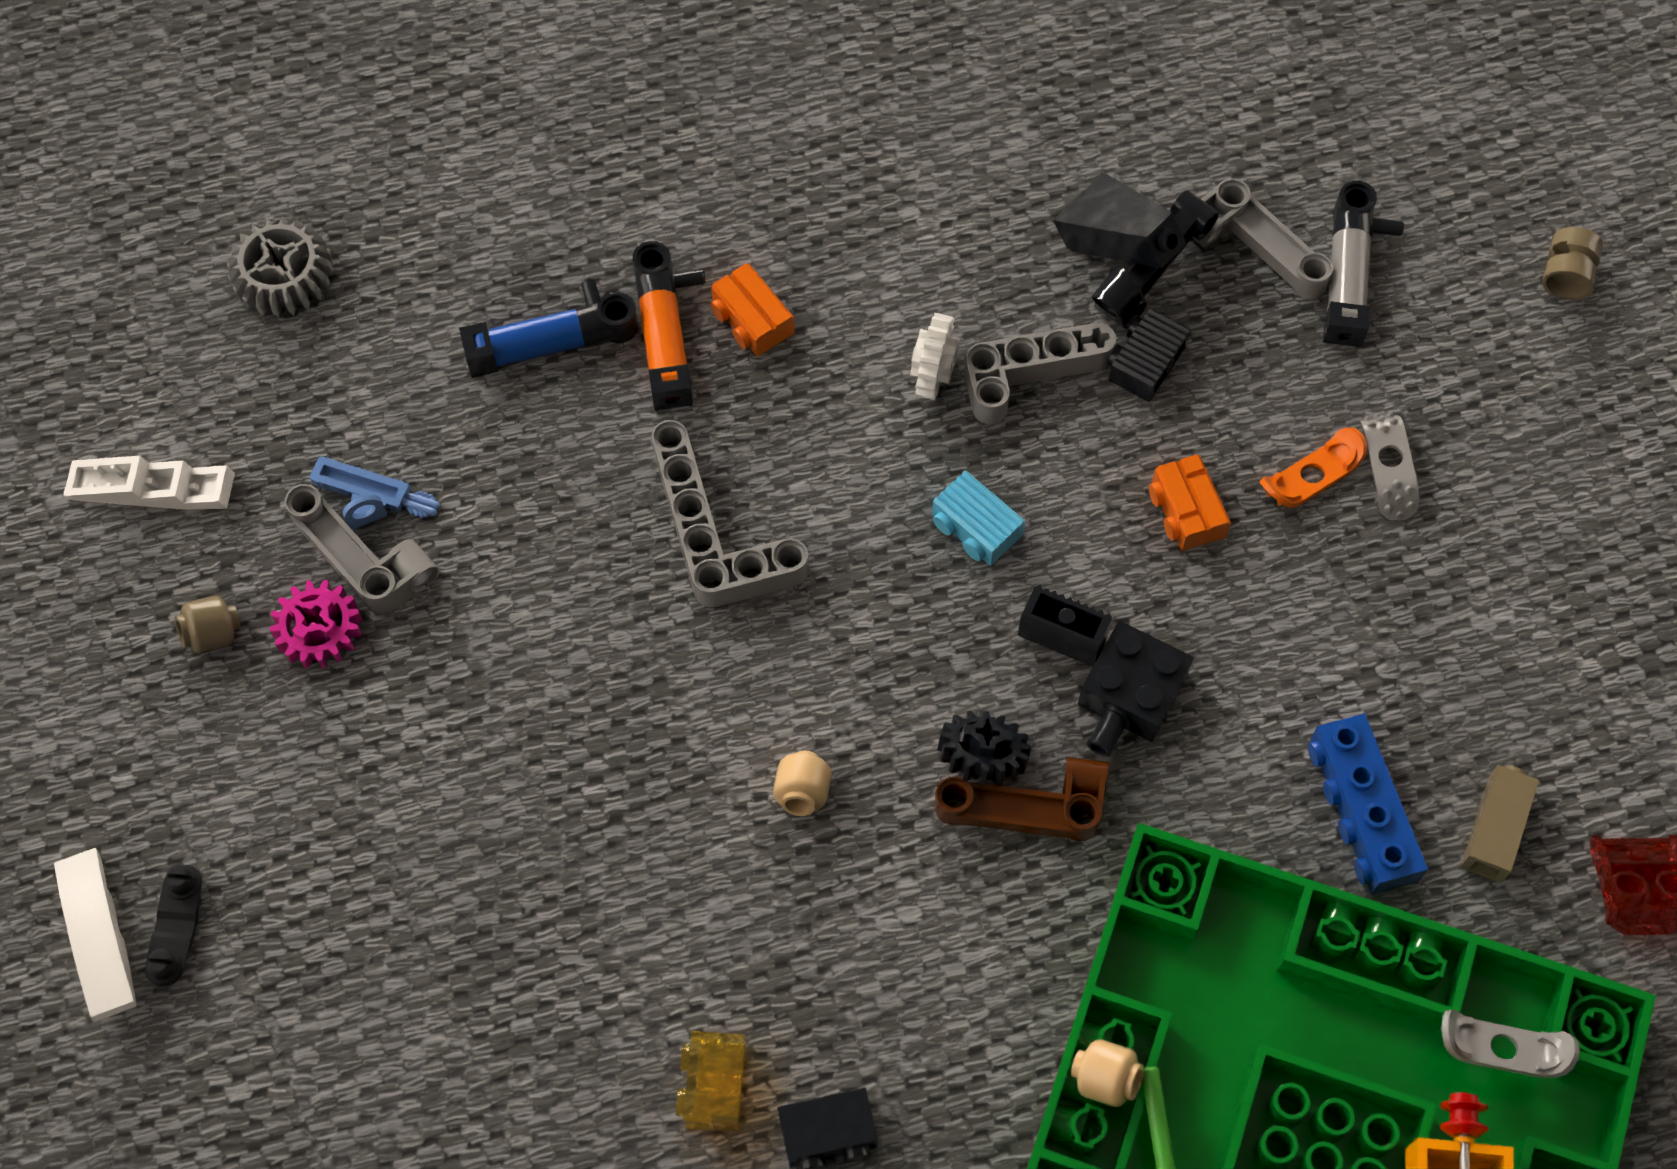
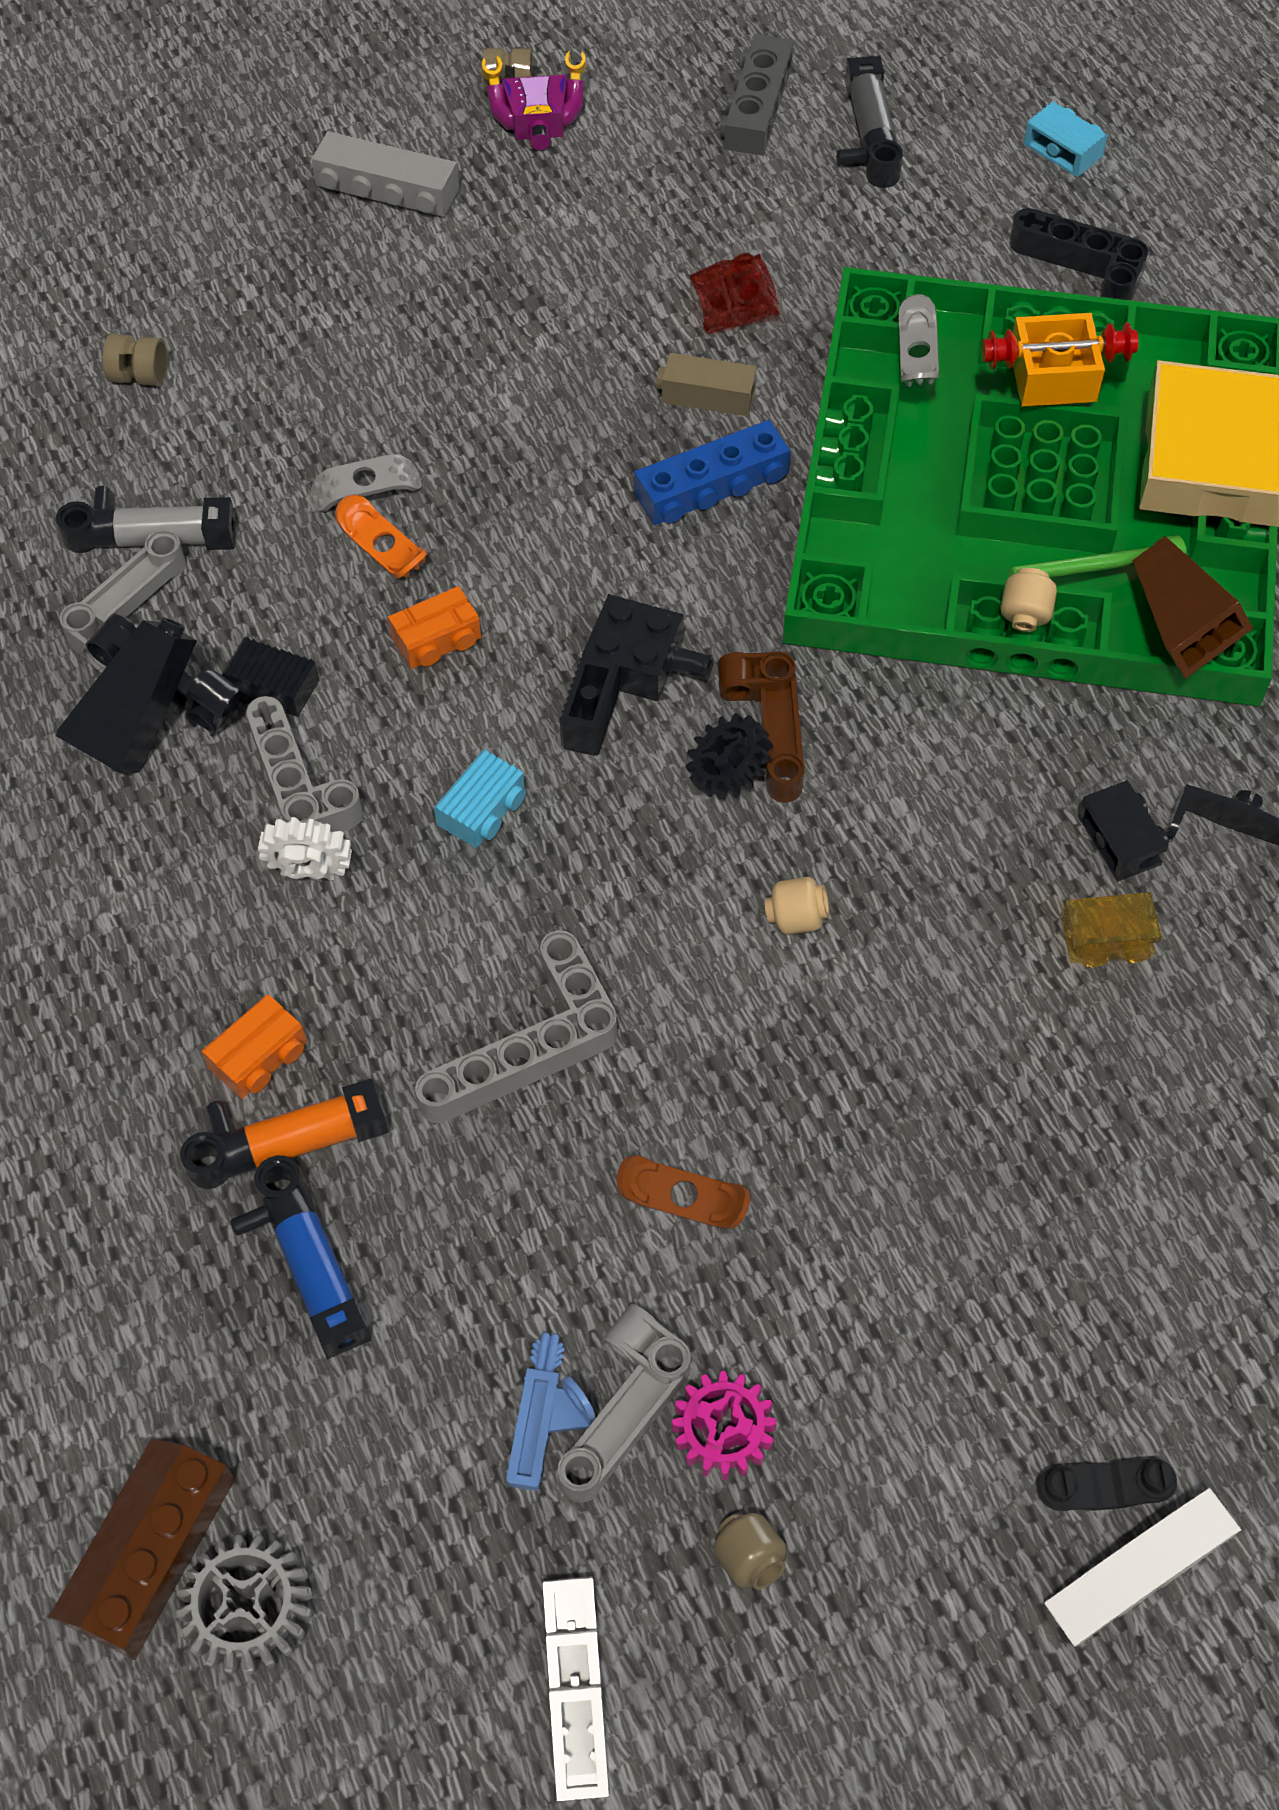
camera: 100 degrees left, 5 degrees down
(344, 206) = (144, 1546): none -> reddish brown slope
(549, 609) = (651, 1185): none -> dark orange piece

